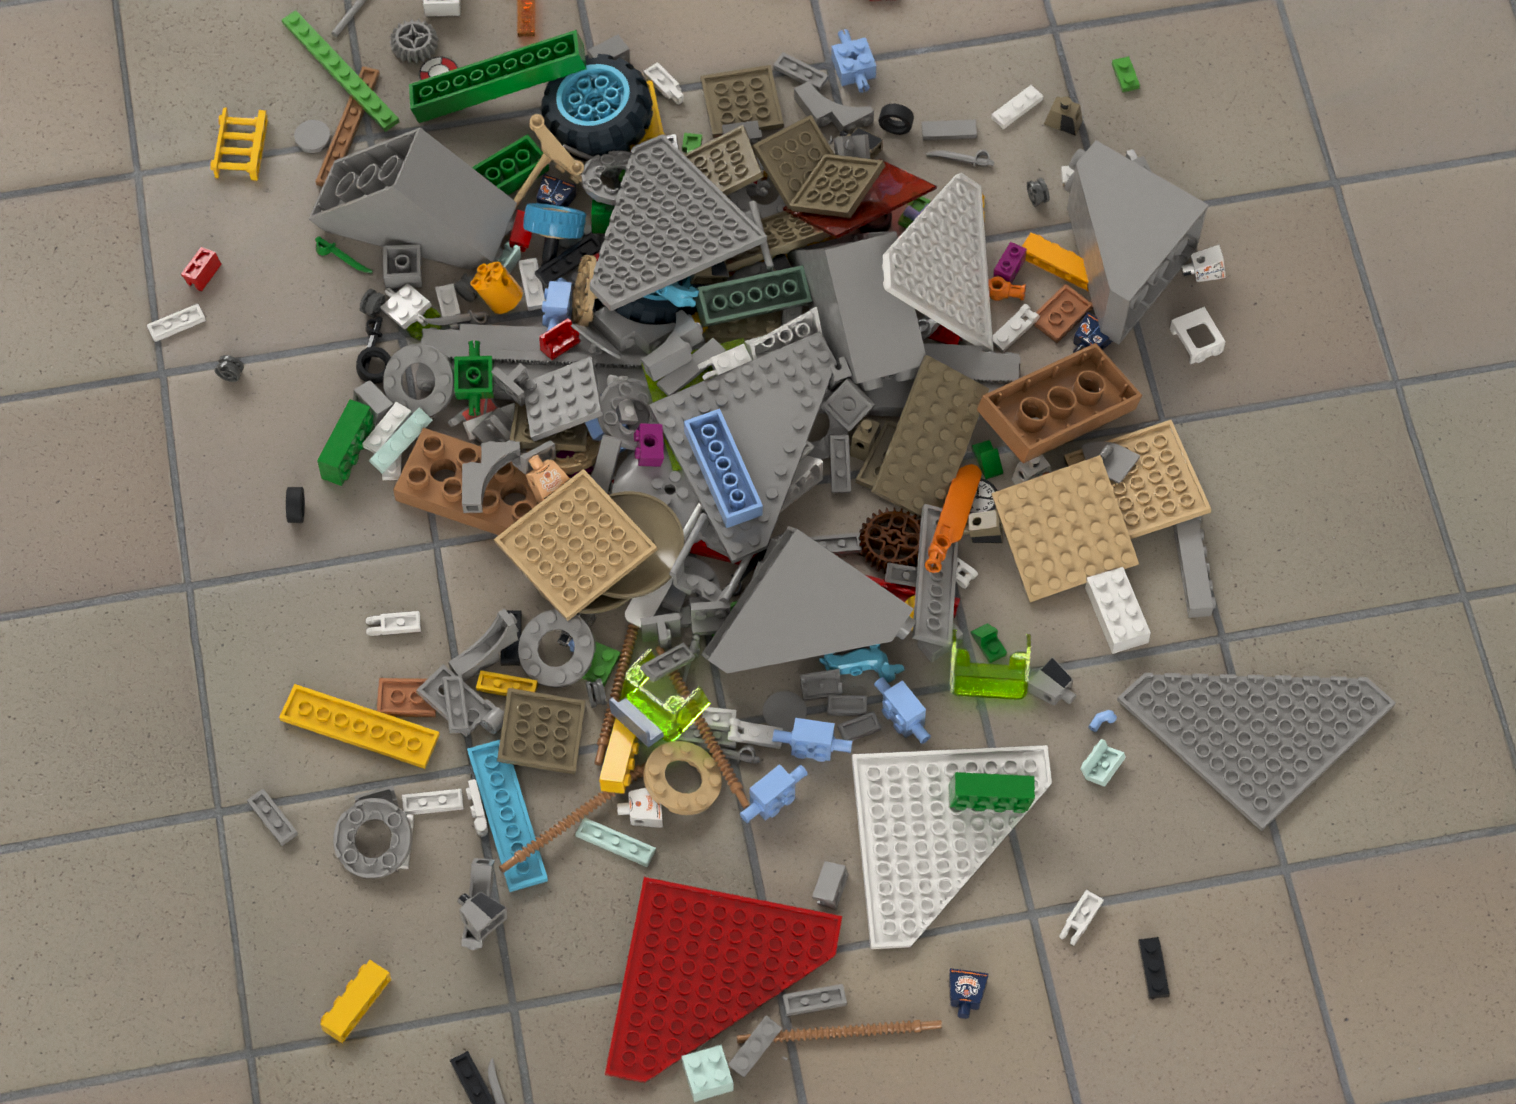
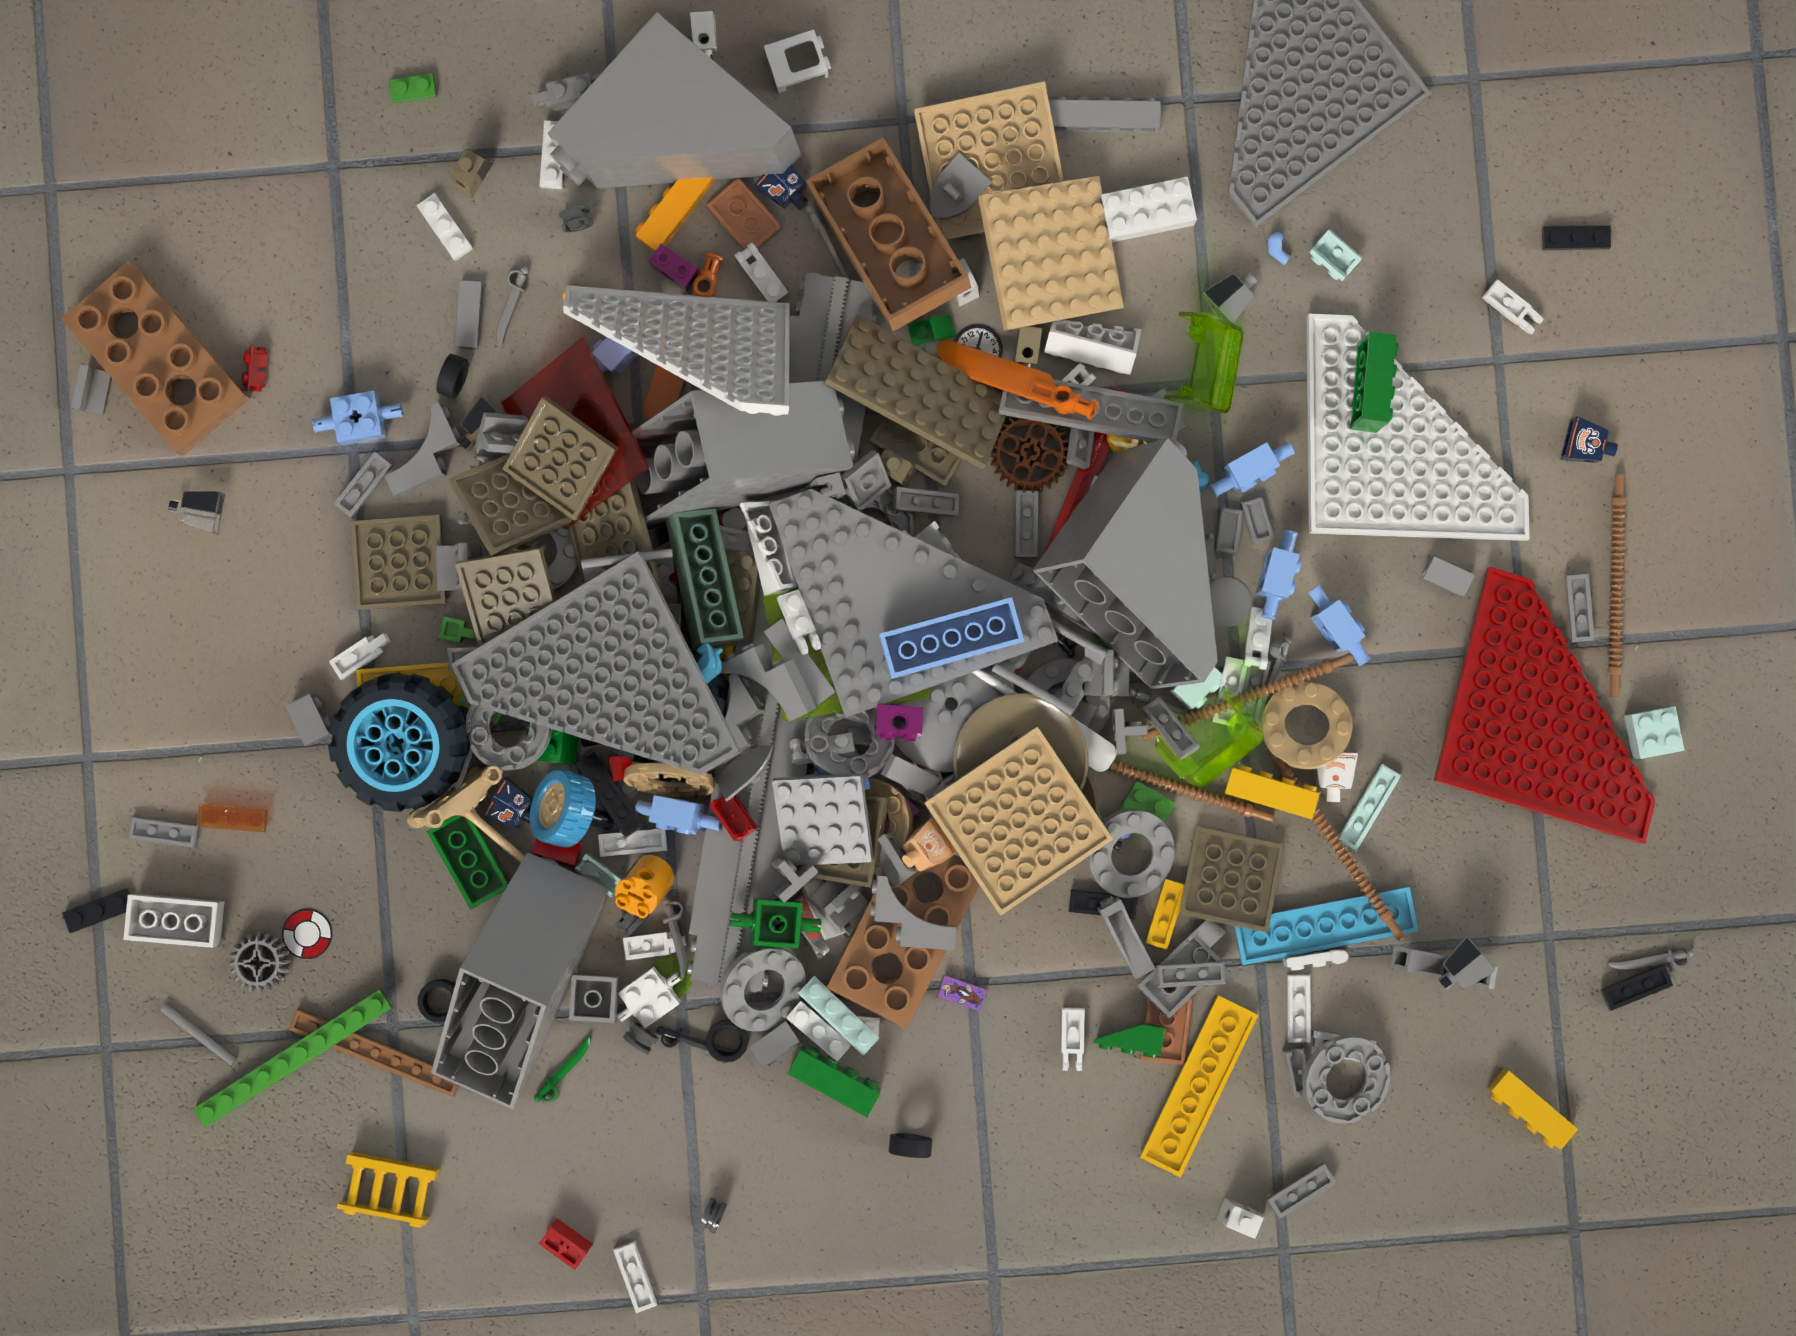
camera: 80 degrees left, 25 degrees up
(245, 766) = (1240, 1218): none -> white torso
(312, 136) = (384, 1097): light grey tile -> none
(397, 674) = (1142, 1038): none -> green slope
(426, 537) = (962, 992): none -> tile
(497, 76) = (344, 861): green brick -> none
(598, 692) = (1189, 810): dark grey wheel -> none
(635, 721) = (1240, 770): panel -> none
(713, 682) = (1194, 694): none -> light aqua brick
(755, 1046) = (1635, 678): light grey brick -> none
(988, 642) = (1167, 361): green slope -> none
(993, 580) = (1094, 345): none -> white wedge

